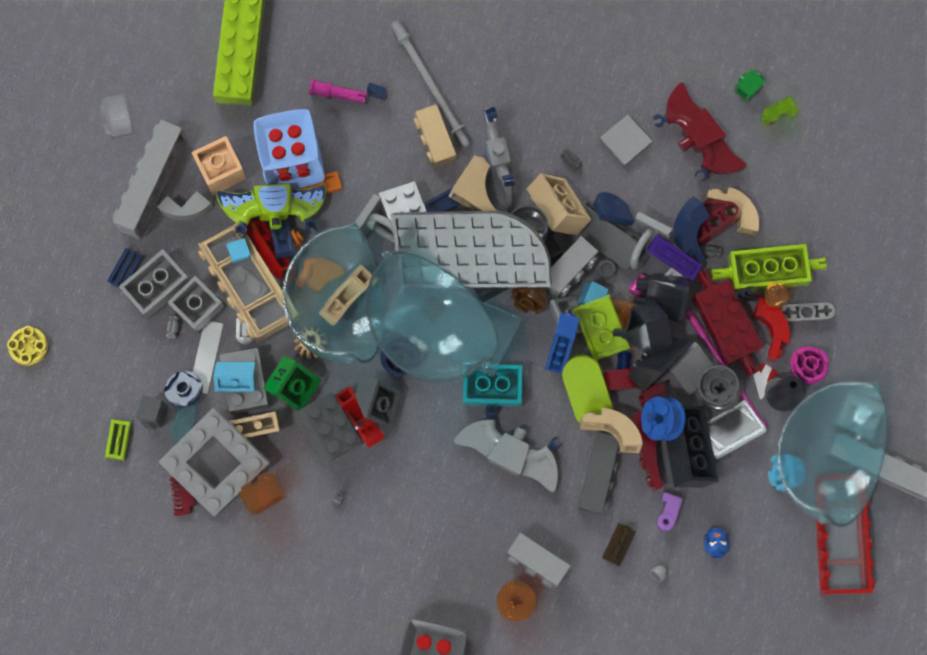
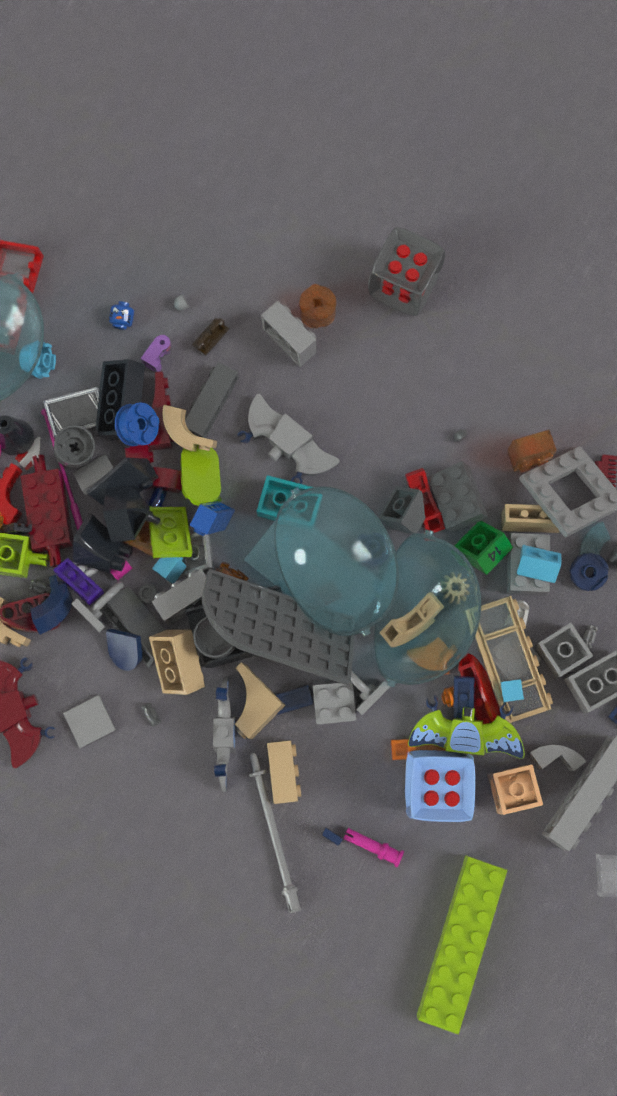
camera: 160 degrees left, 0 degrees up
(207, 353) = (559, 604): white sticker -> none

